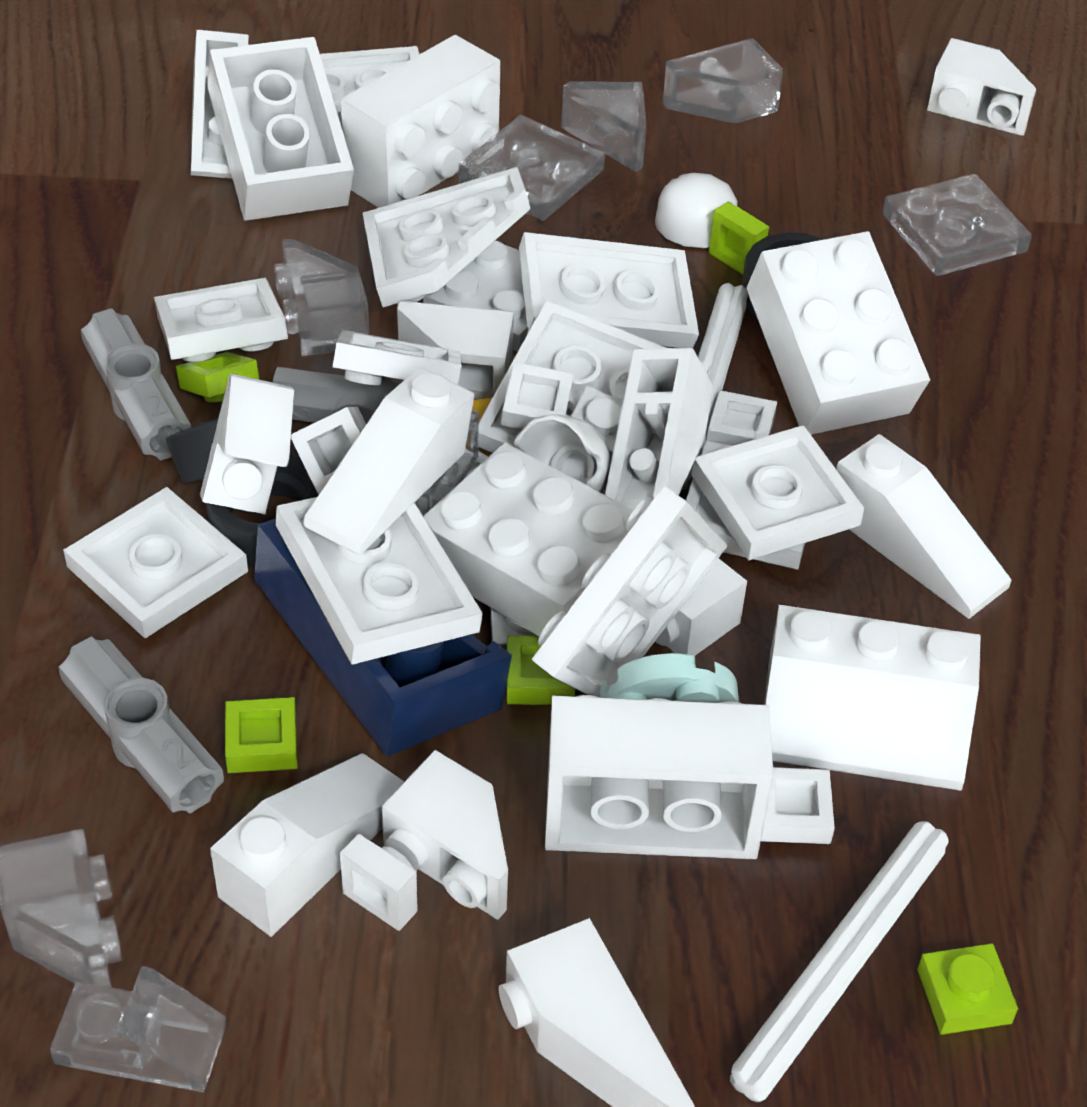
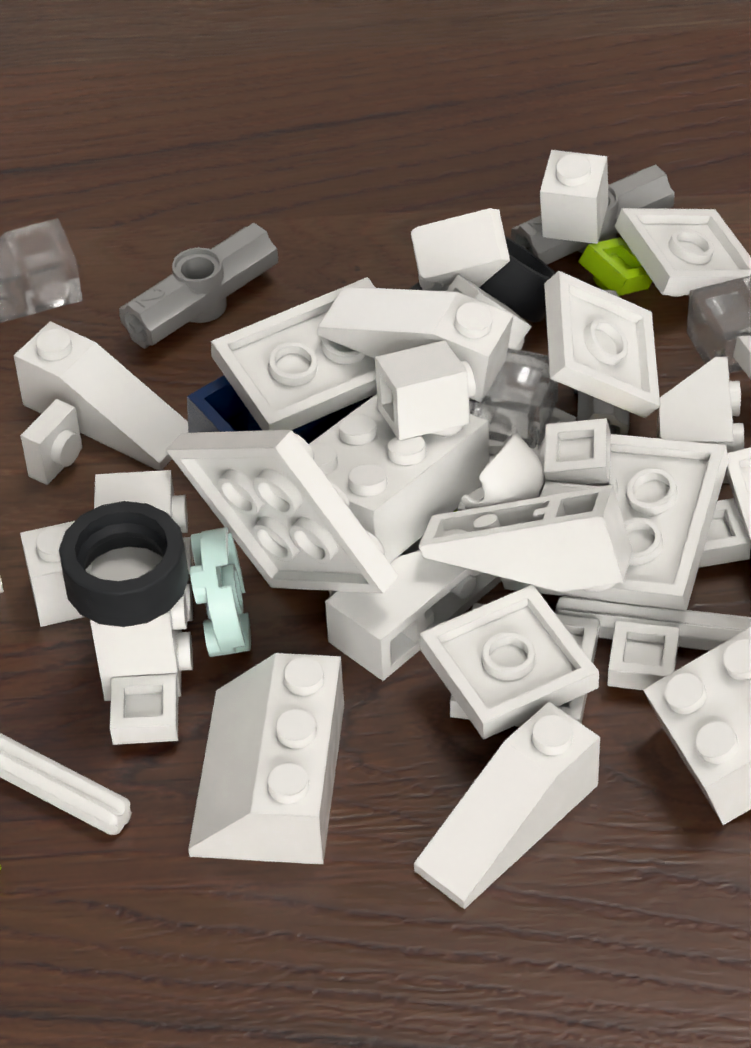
camera: 90 degrees right, 0 degrees up
(156, 561) = (371, 249): white plate -> none
(164, 352) = (574, 196): none -> white brick
(261, 735) = (192, 358): lime plate -> none
(450, 831) = (103, 450): white slope -> none
(497, 457) = (423, 389): none -> white brick
(604, 869) = (46, 574): none -> white brick
(737, 678) = (129, 600): none -> black tyre

